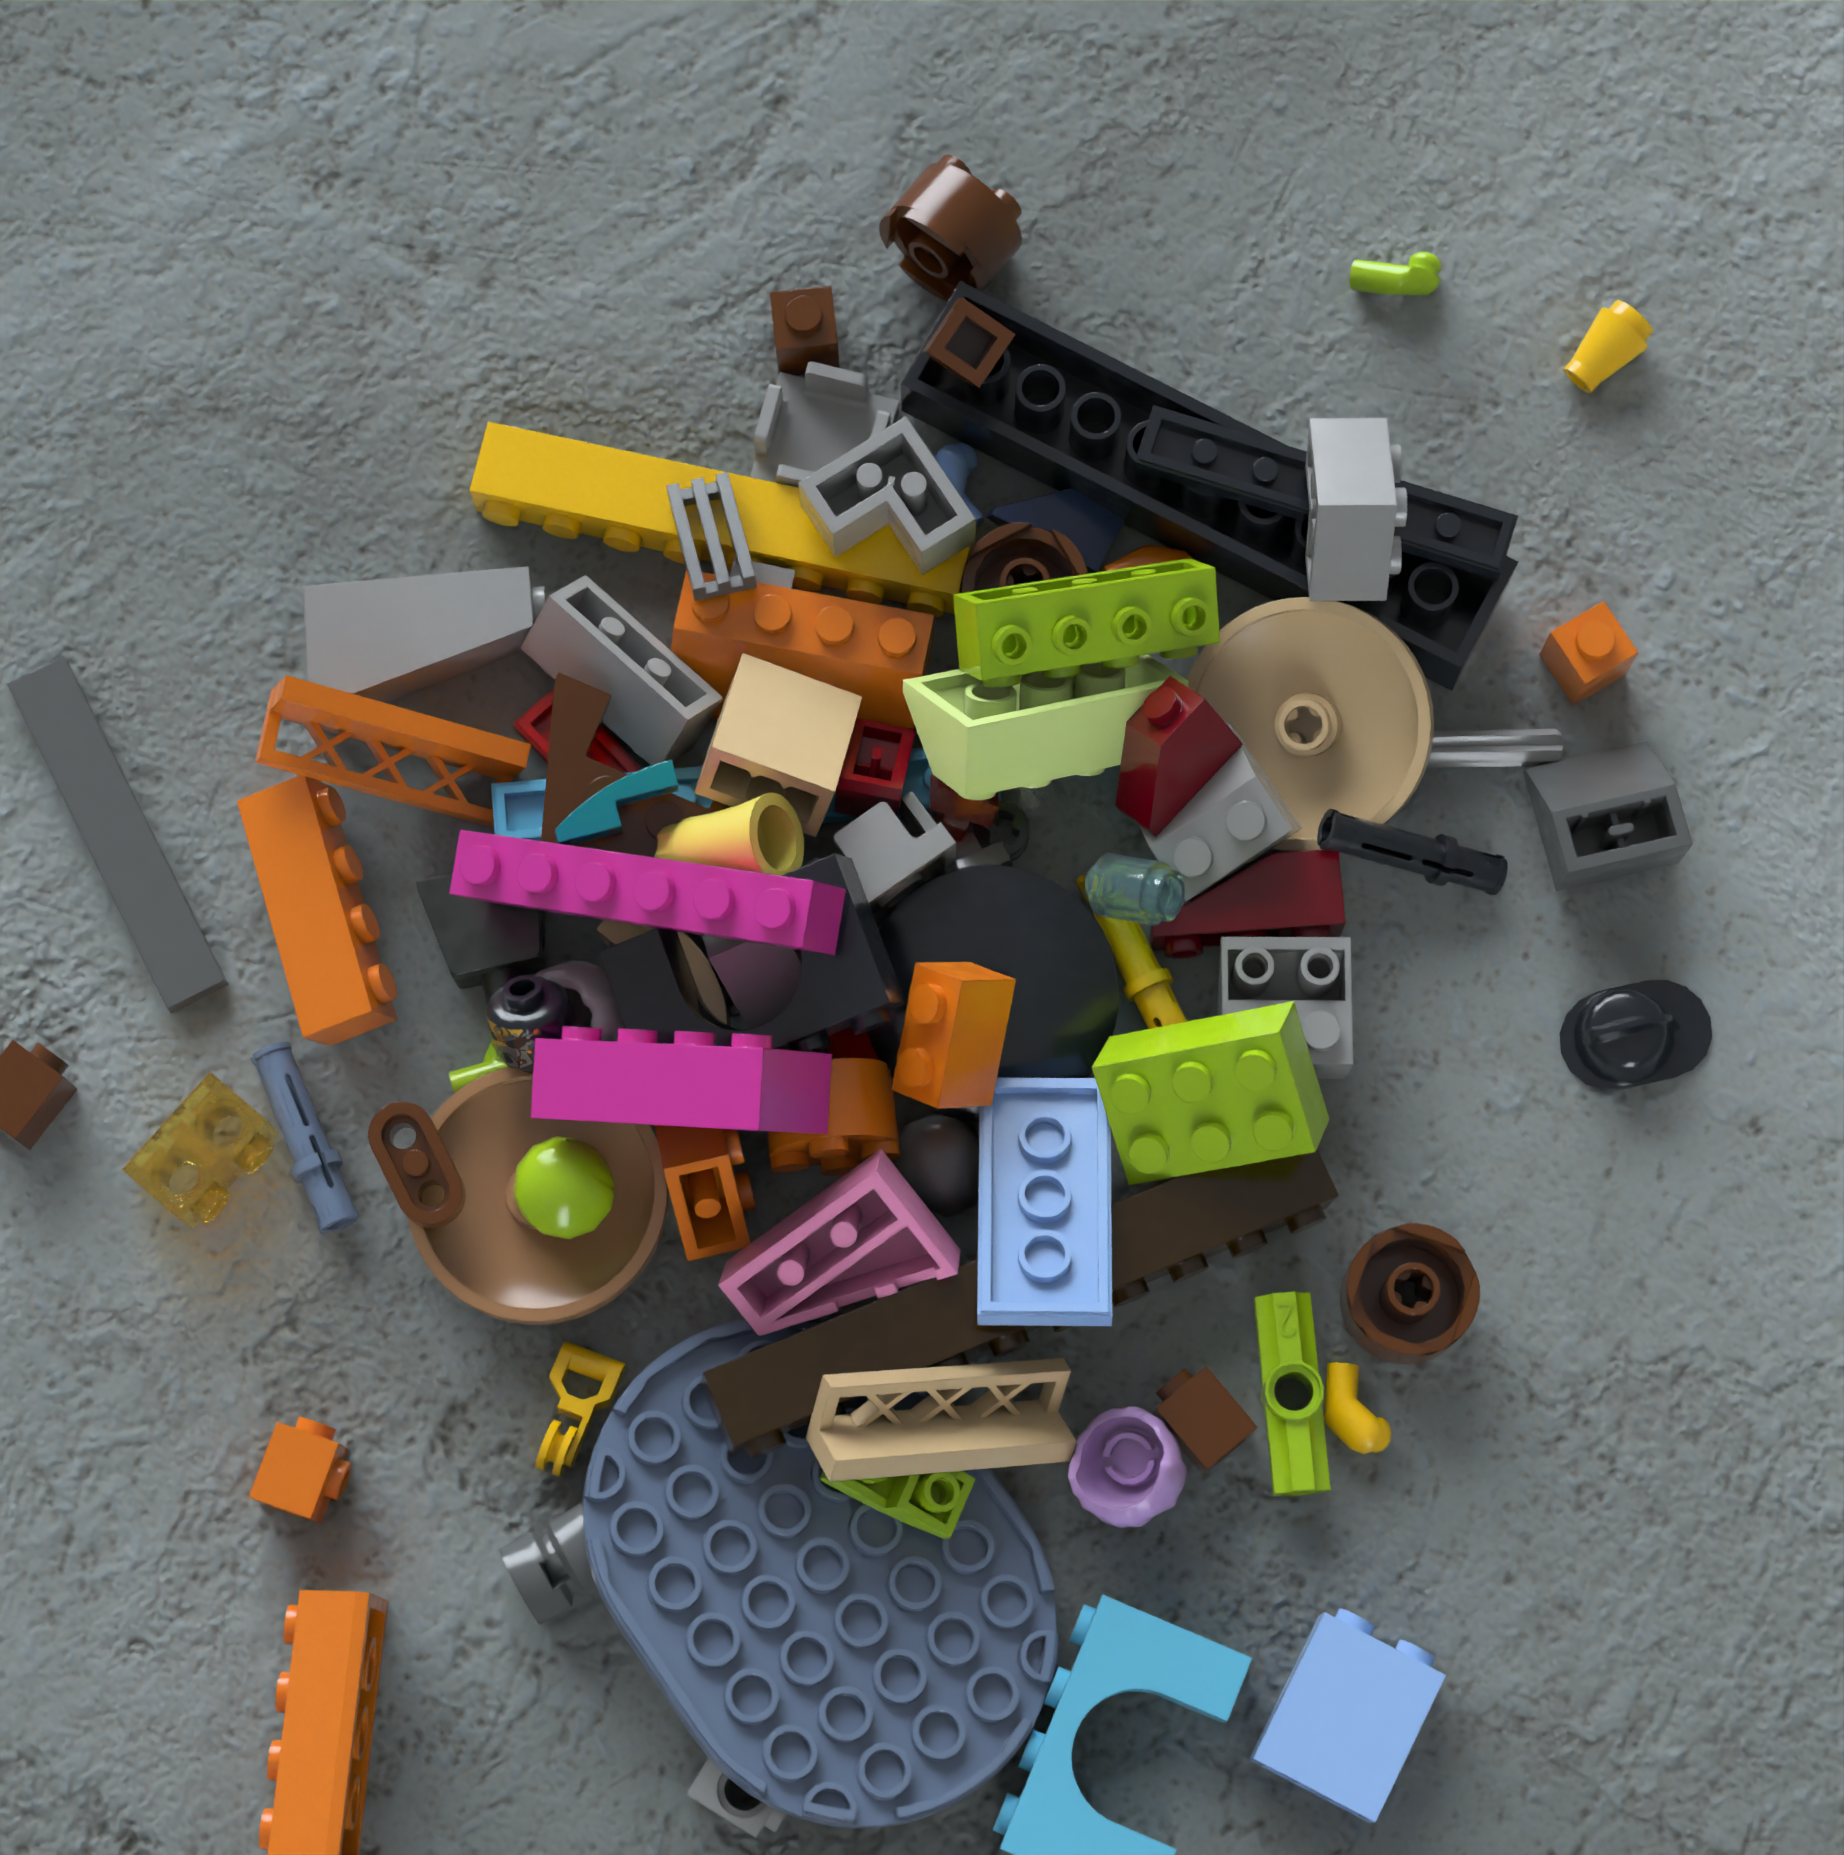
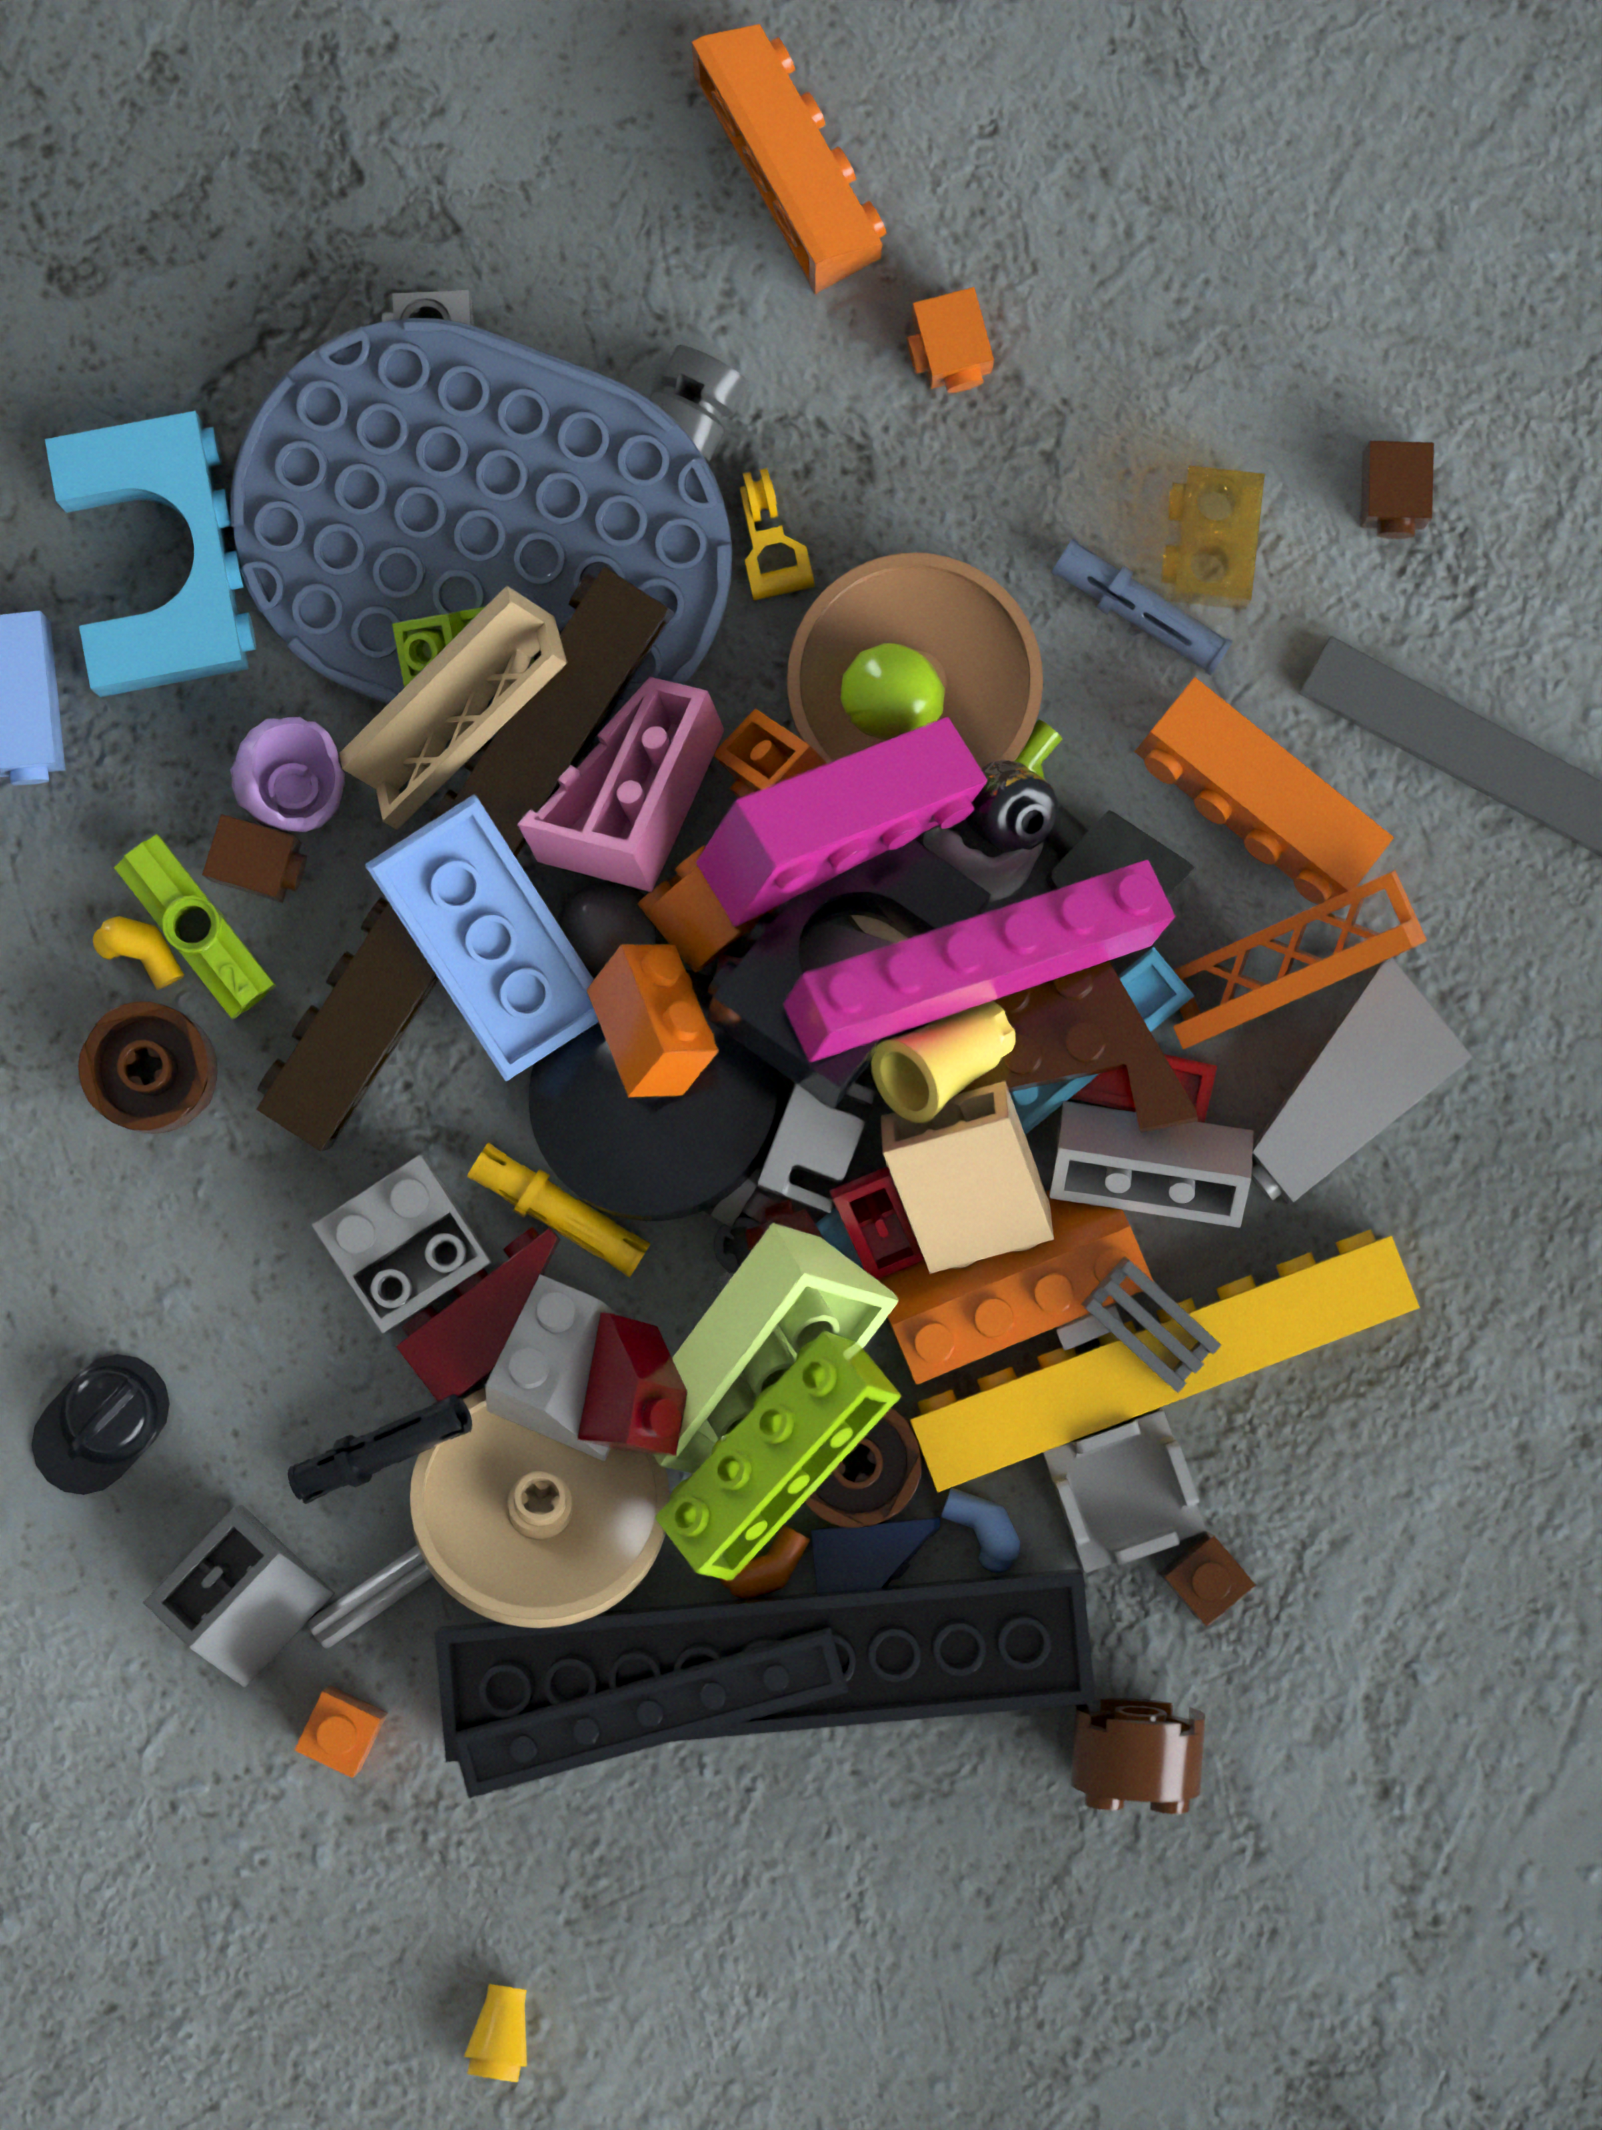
camera: 145 degrees right, 10 degrees up
(418, 1166) = (1026, 626): reddish brown plate -> none
(599, 813) = (1073, 1013): teal slope -> none
(893, 484) = (1022, 1471): light grey brick -> none
(968, 342) = (1040, 1634): reddish brown brick -> none
(1134, 889) = (588, 1253): clear light blue brick -> none
(1211, 1093) = (410, 1117): lime brick -> none
(1353, 509) = (609, 1698): light grey brick -> none
(1415, 279) = (724, 1976): lime arm -> none

